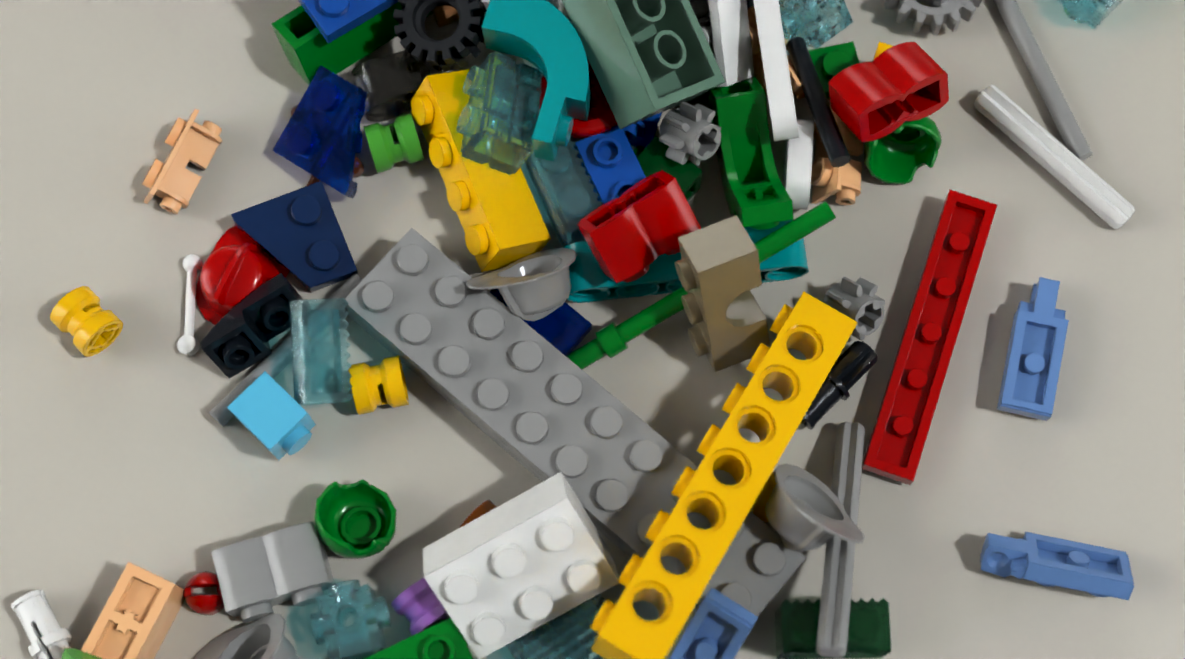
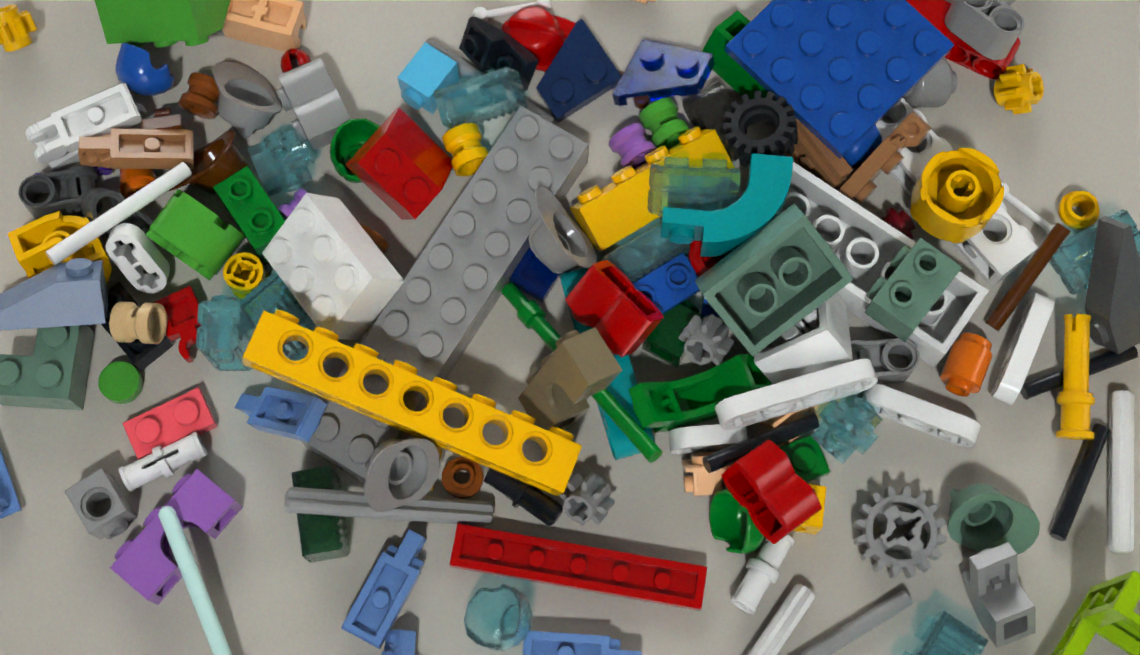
camera: 80 degrees right, 0 degrees up
(391, 464) = (402, 166): none -> red slope
(416, 185) = (631, 145): none -> medium lavender wheel
(816, 442) = (466, 490): none -> dark orange plate
(933, 563) = (386, 591): none -> medium blue hinge
(963, 138) = (760, 574): none -> white pin
(985, 431) = (498, 617): none -> clear light blue hair

